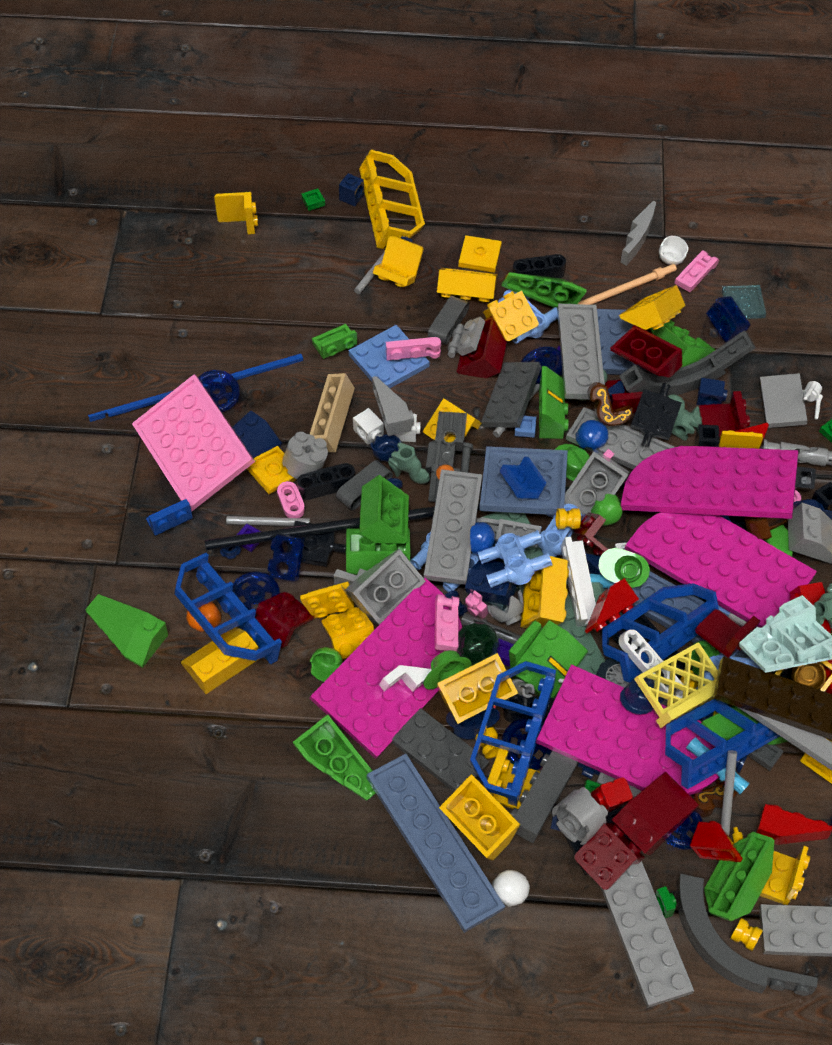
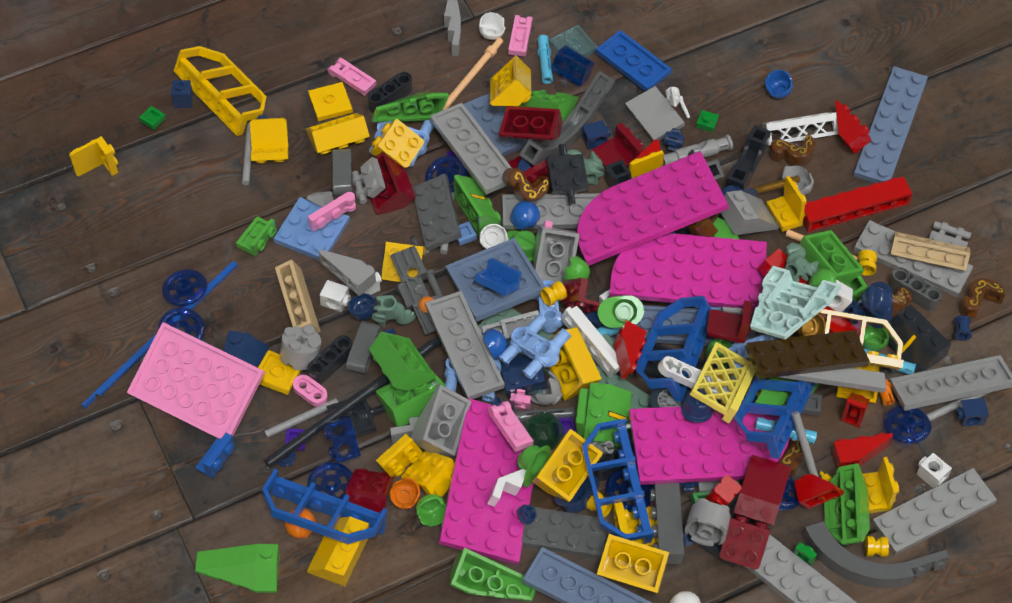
camera: 30 degrees left, 0 degrees up
(242, 356) = (184, 287): none -> clear blue plate
(312, 636) = (405, 493): none -> orange hair
(413, 333) = (321, 198): none -> light grey slope
(415, 714) = (526, 514): none -> dark blue plate
(514, 240) = (352, 76): none -> bright pink plate
(549, 439) = (492, 235): none -> white hair
(709, 296) = (545, 63): none -> medium azure pin
(787, 431) = (674, 139): none -> dark blue gear
(793, 341) = (633, 61): none -> blue plate
(810, 783) = (855, 409): none -> red slope

